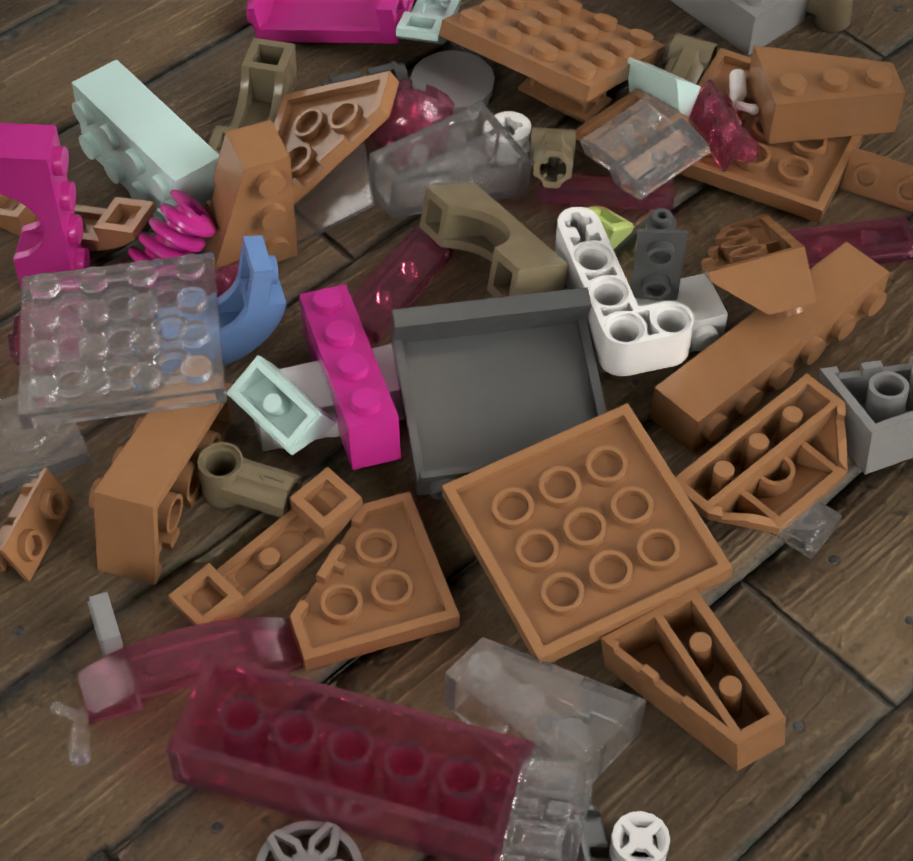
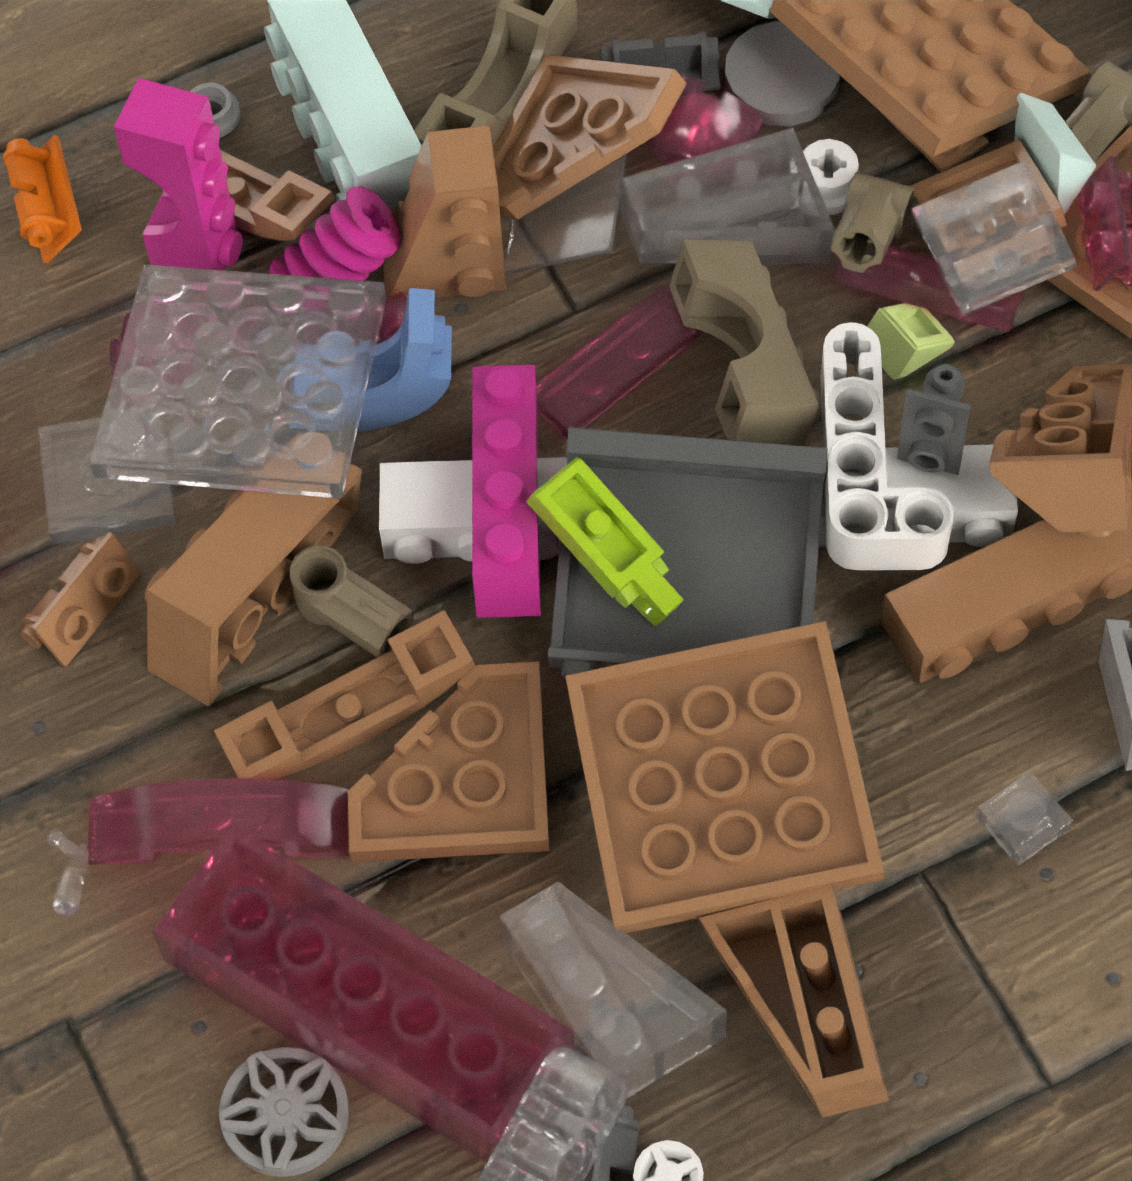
camera: 20 degrees right, 10 degrees up
(105, 623) = (132, 751): light grey tile -> none
(279, 406) = (409, 515): light aqua slope -> none
(442, 387) = (606, 540): none -> lime hinge
(773, 461) = (996, 734): medium nougat wedge -> none

